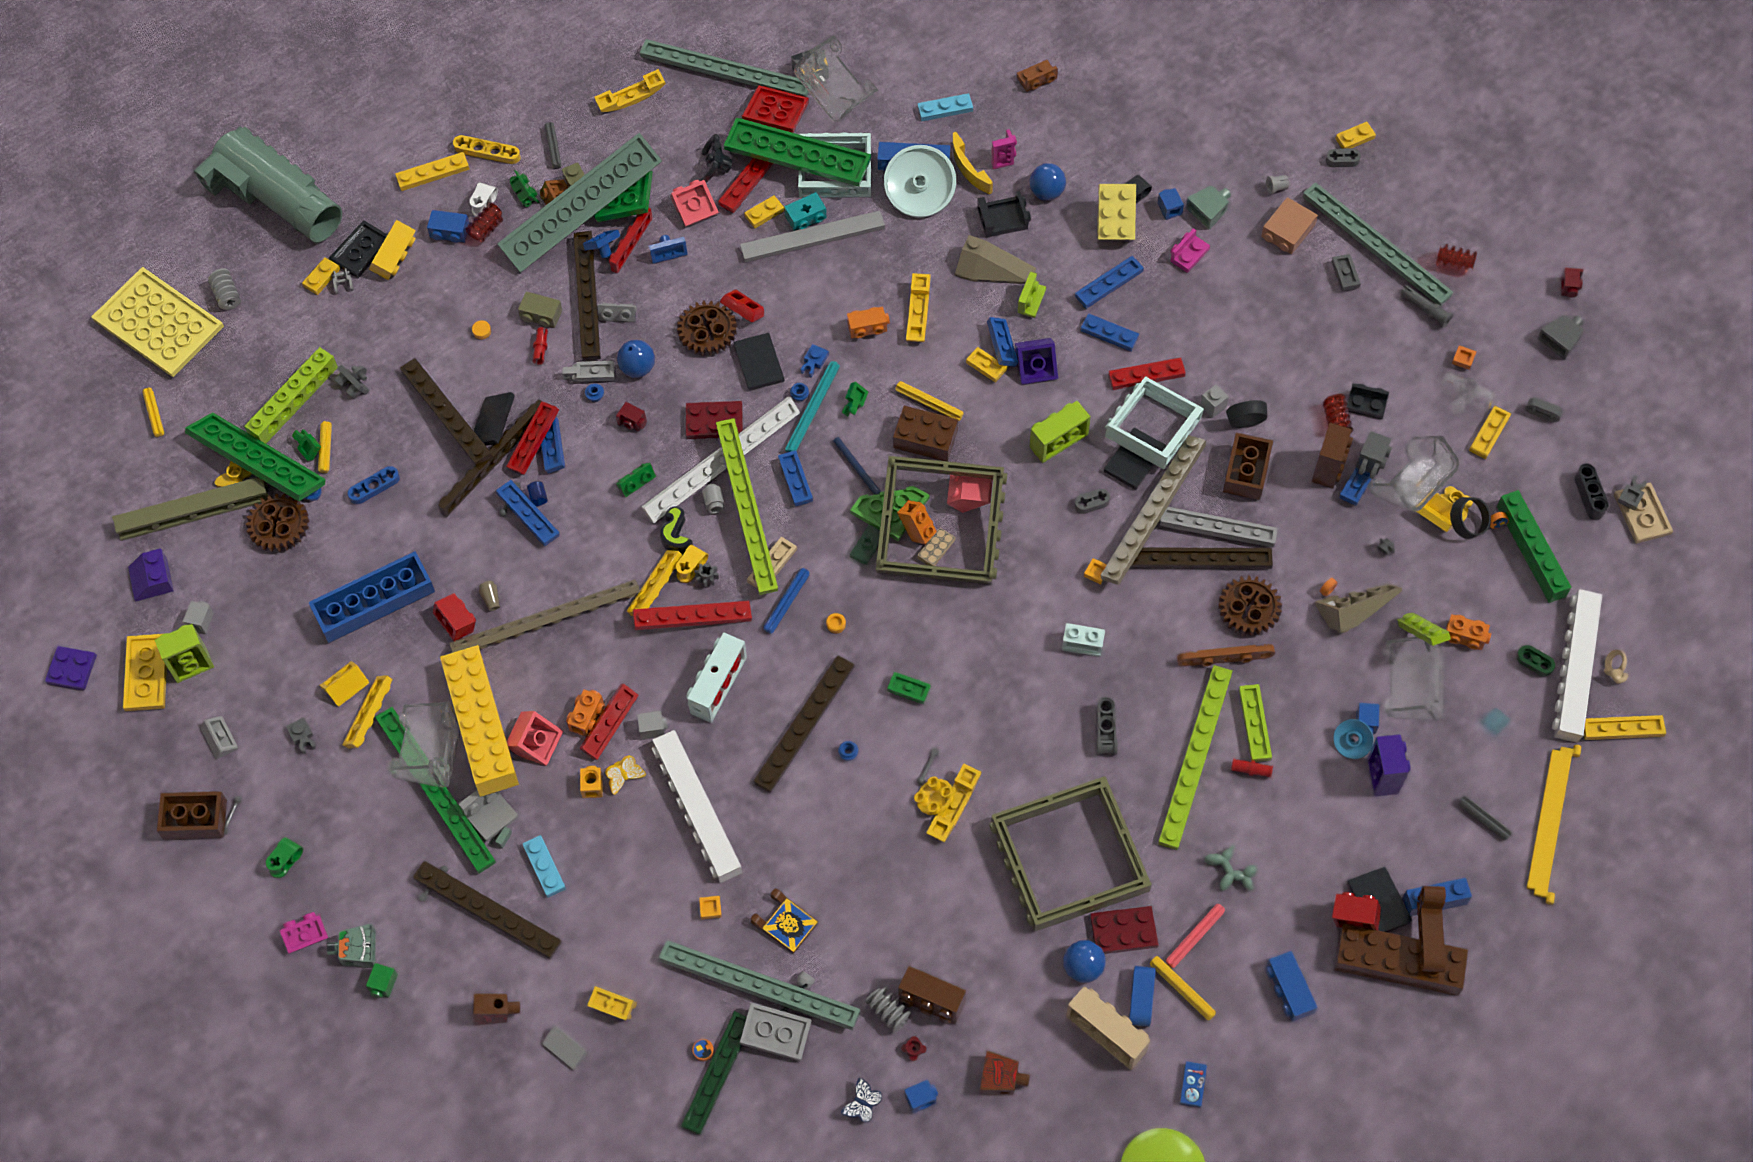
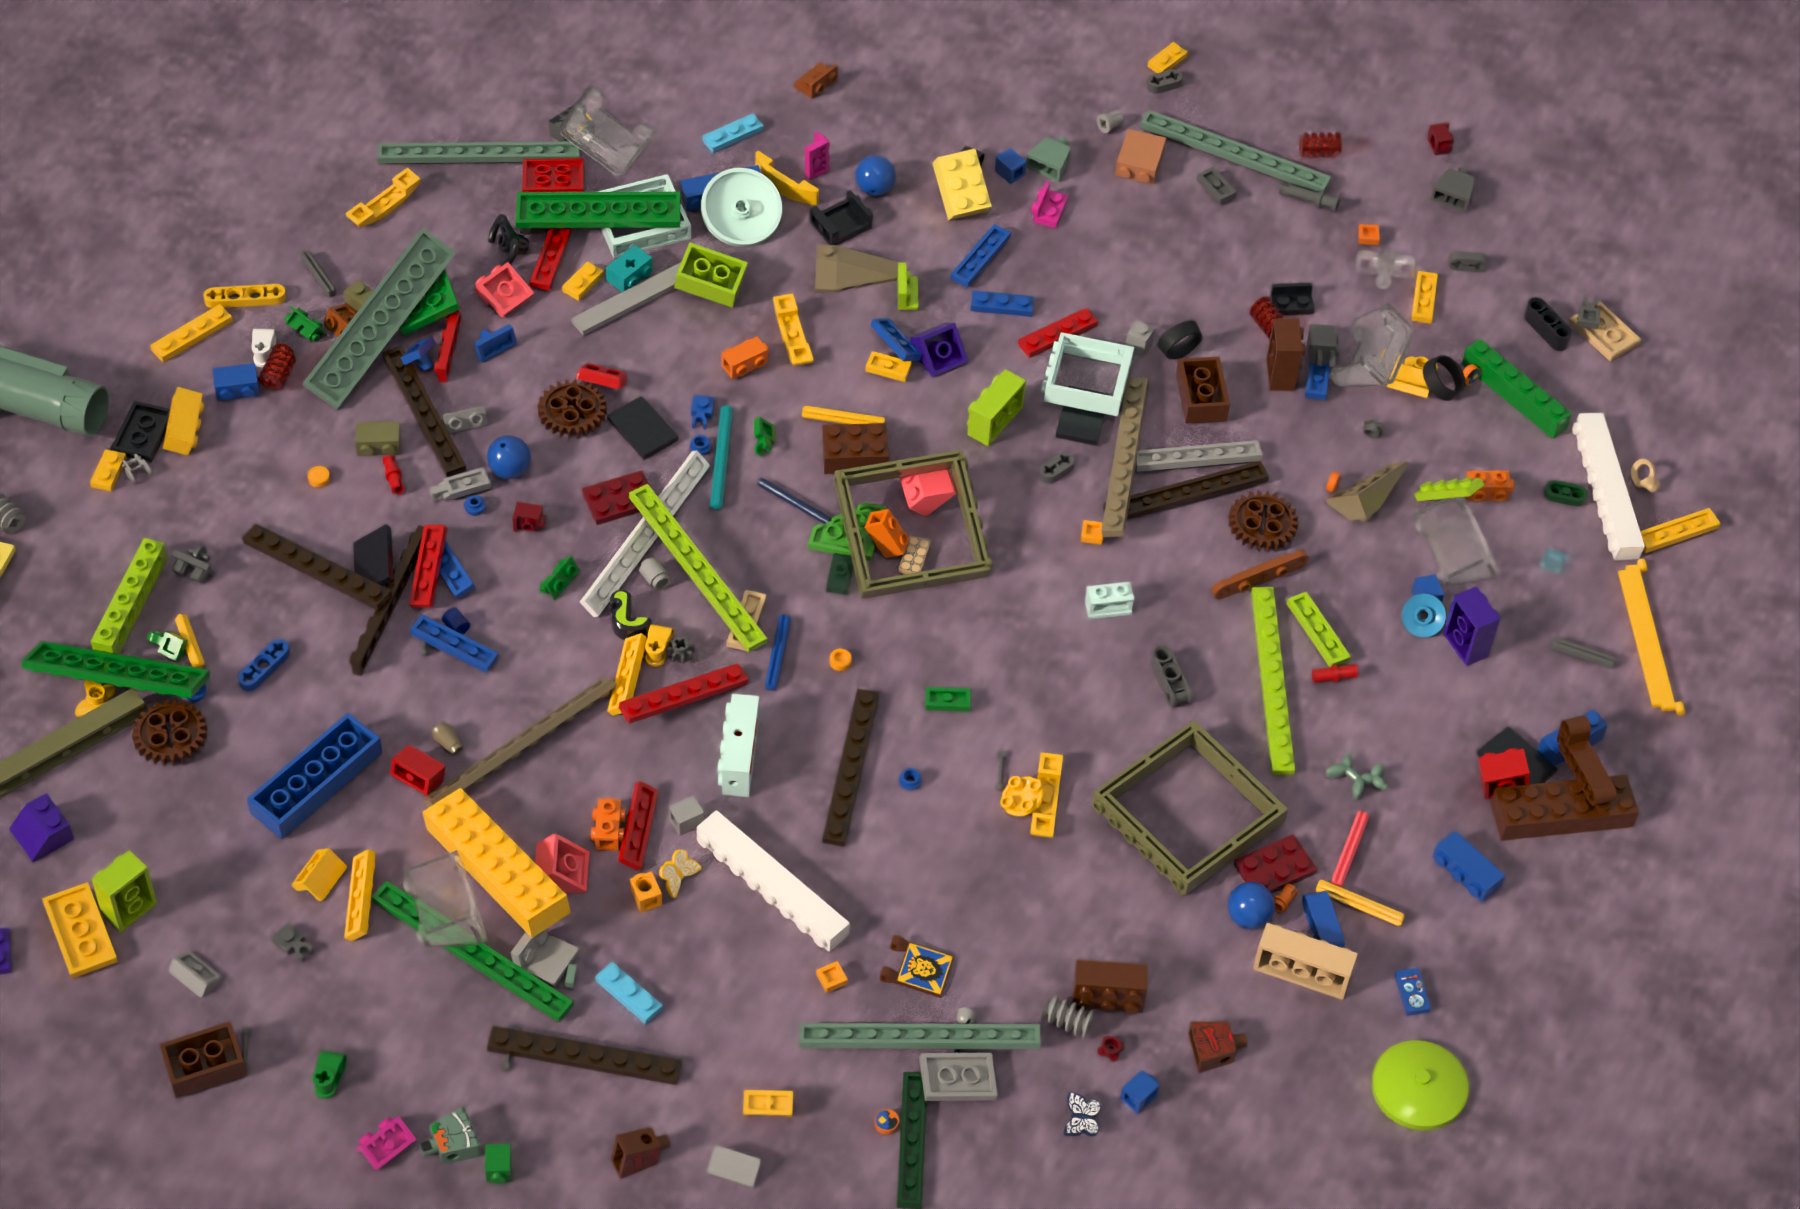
camera: 25 degrees left, 10 degrees down
(199, 615) = (116, 846): light grey brick -> none
(795, 478) = (734, 530): blue plate -> none
(868, 238) = (710, 275): none -> lime brick
(1118, 962) = (1284, 898): none -> orange pin

